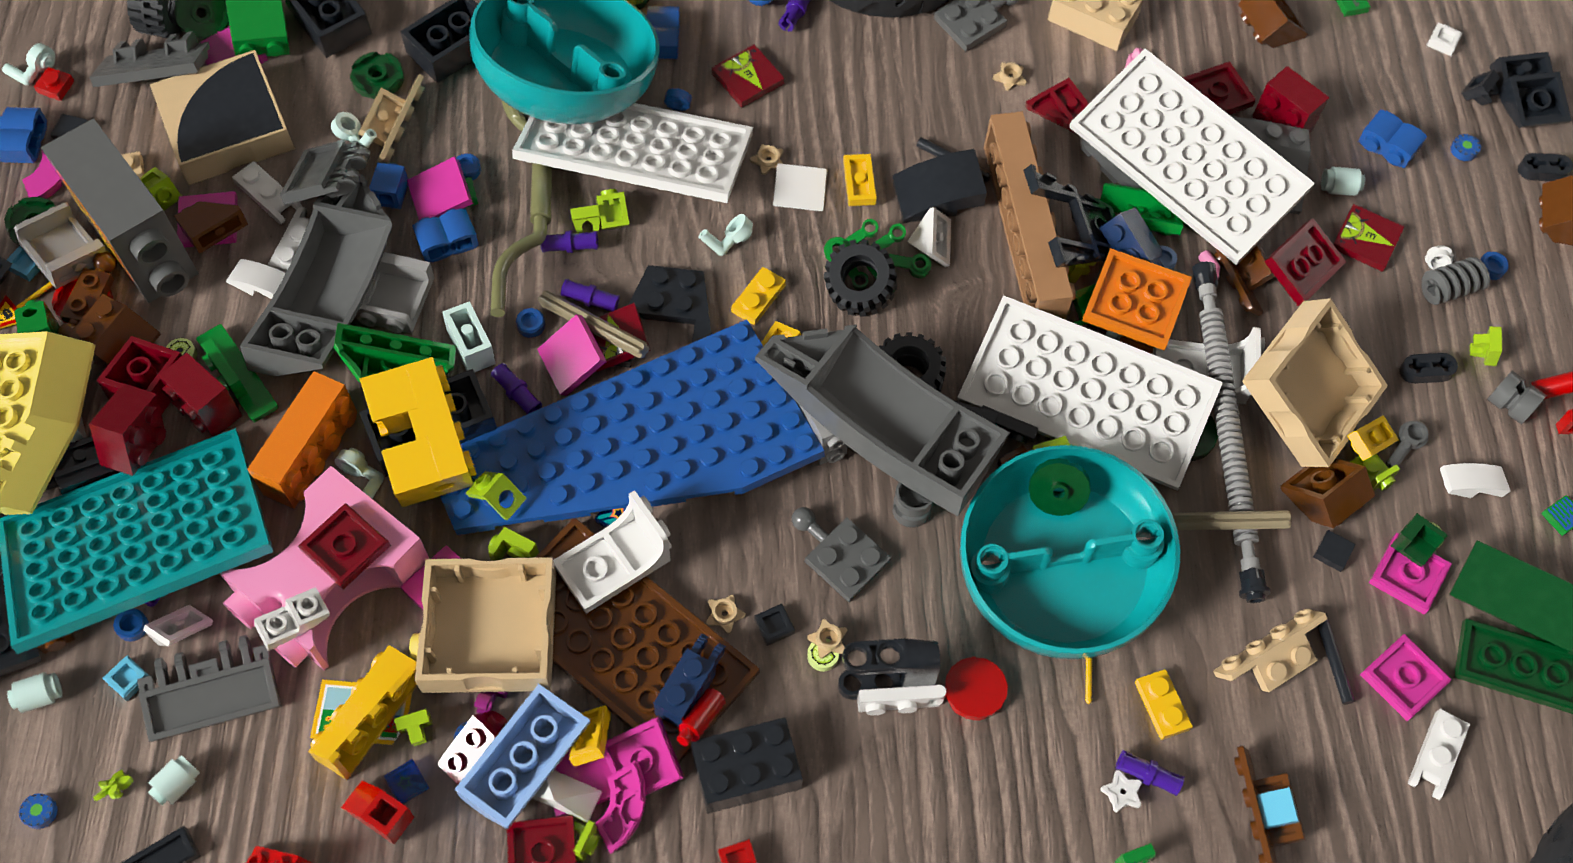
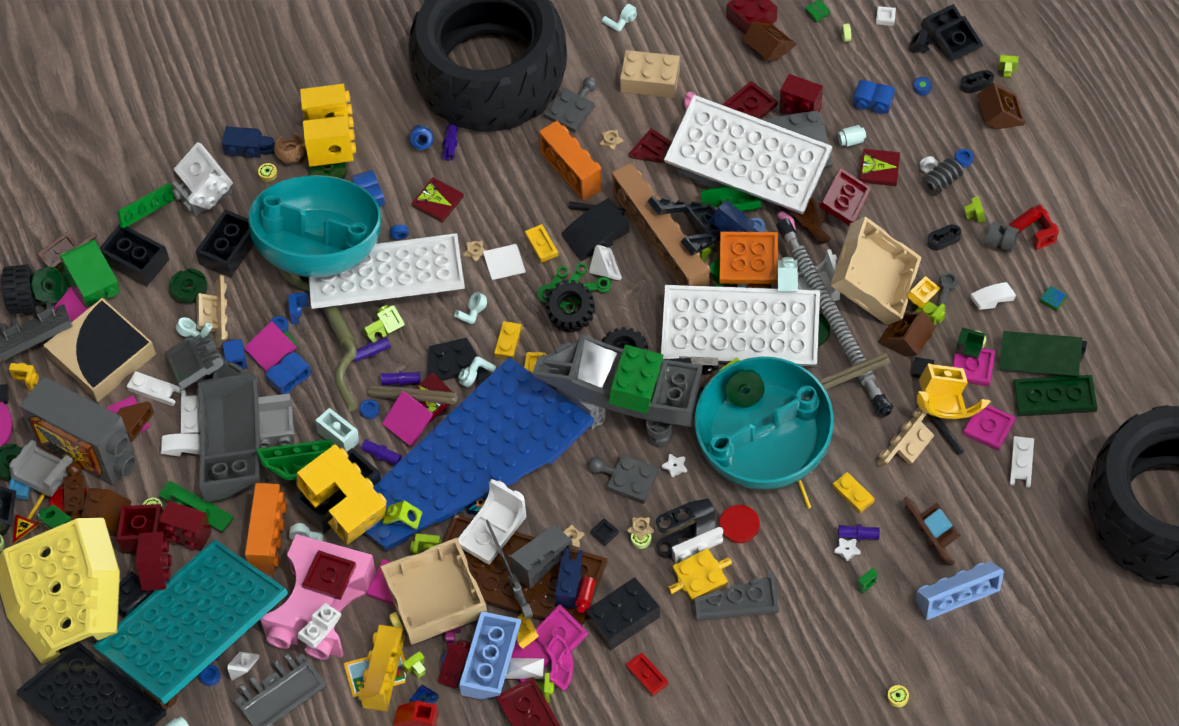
camera: 15 degrees left, 5 degrees down
(116, 114) = (24, 373): none -> yellow bracket
(124, 677) = (223, 705): medium azure tile -> none
(496, 149) = (297, 301): none -> blue bracket
(604, 659) = (513, 580): none -> dark grey sword
(661, 629) = (539, 556): none -> dark grey wedge
(681, 324) = (468, 375): none -> light aqua plate
(886, 747) = (699, 575): none -> yellow plate
(902, 419) = (635, 379): none -> green brick
(912, 569) = (675, 470): none -> white plate
(938, 814) = (748, 599): none -> dark grey wing
(943, 82) = (570, 160): none -> orange brick
(1184, 343) = (787, 274): none -> light aqua brick
(1352, 604) = (943, 393): none -> yellow piece
(1383, 41) = (846, 32): none -> yellowish green tile

